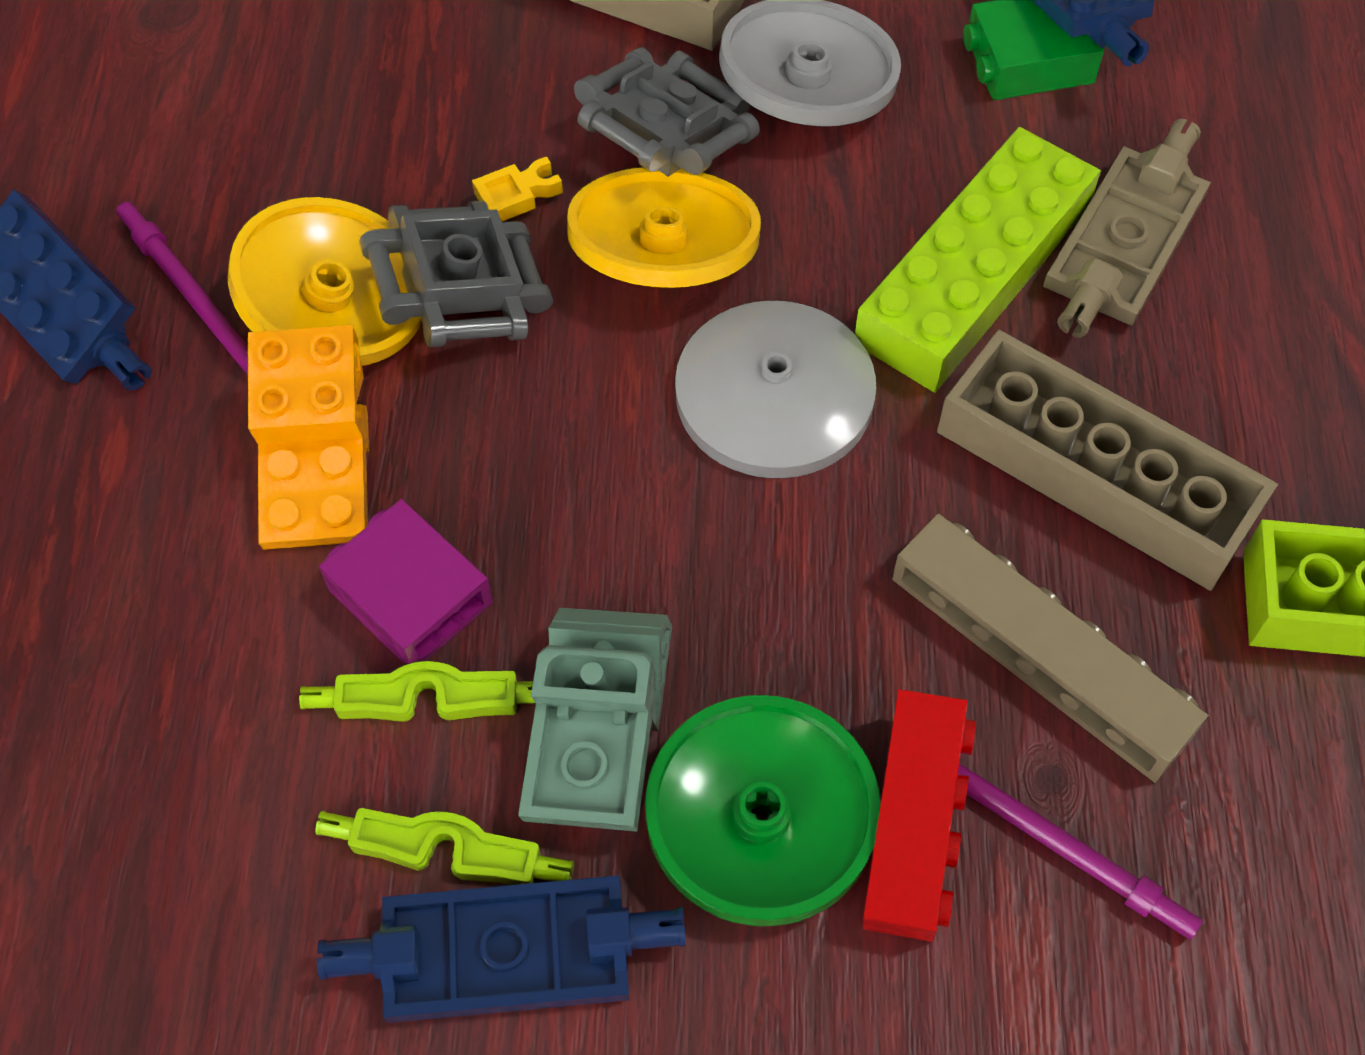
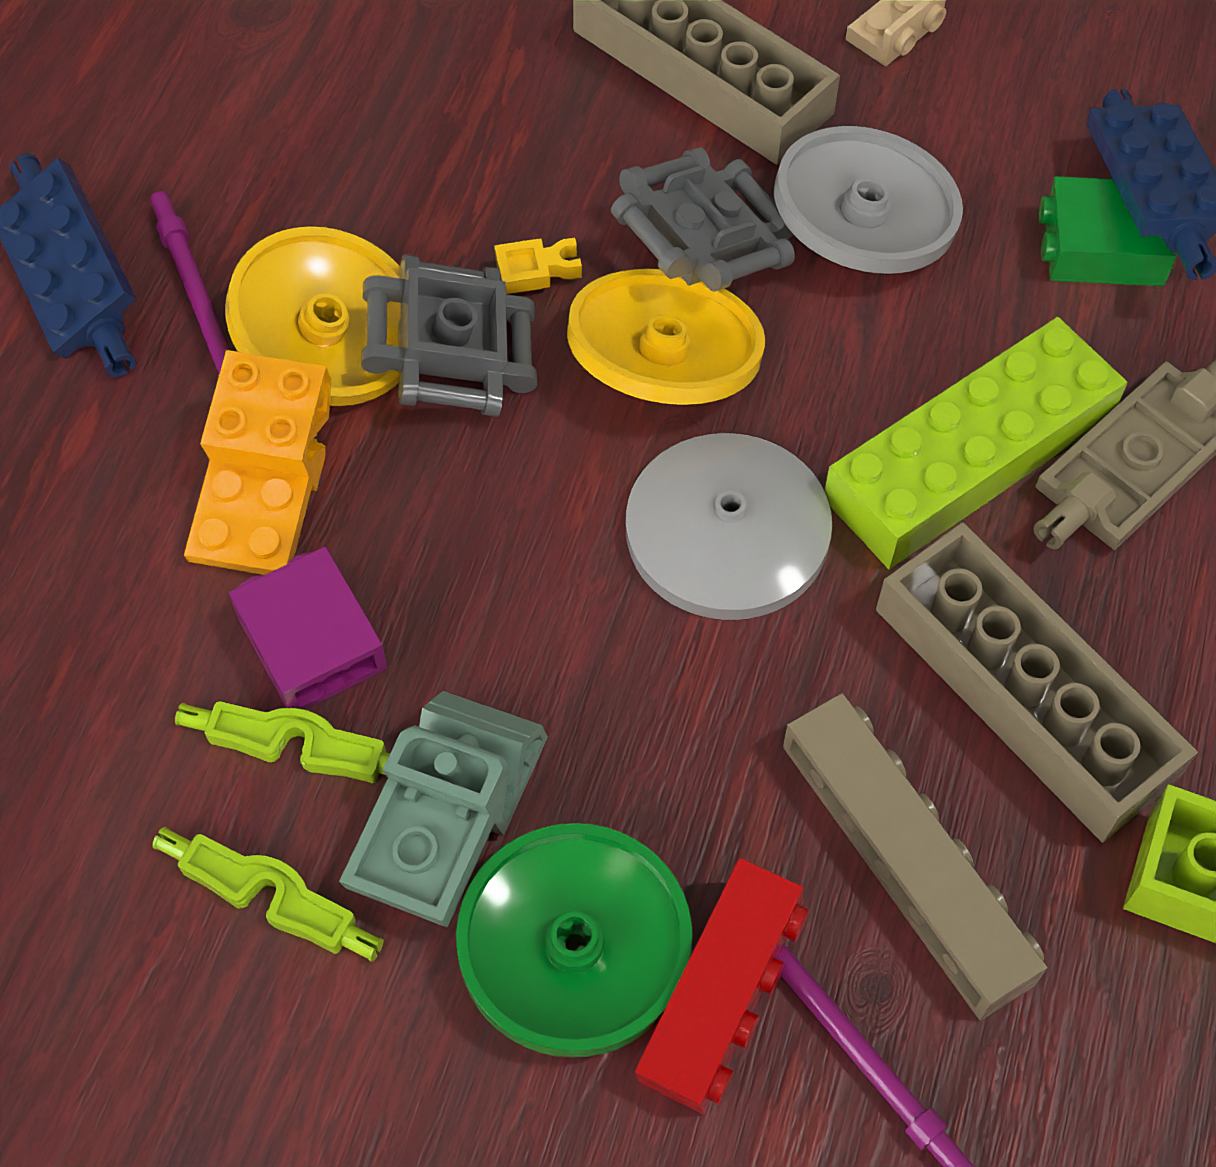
camera: 15 degrees right, 0 degrees up
(502, 948) = (289, 1003): dark blue plate -> none

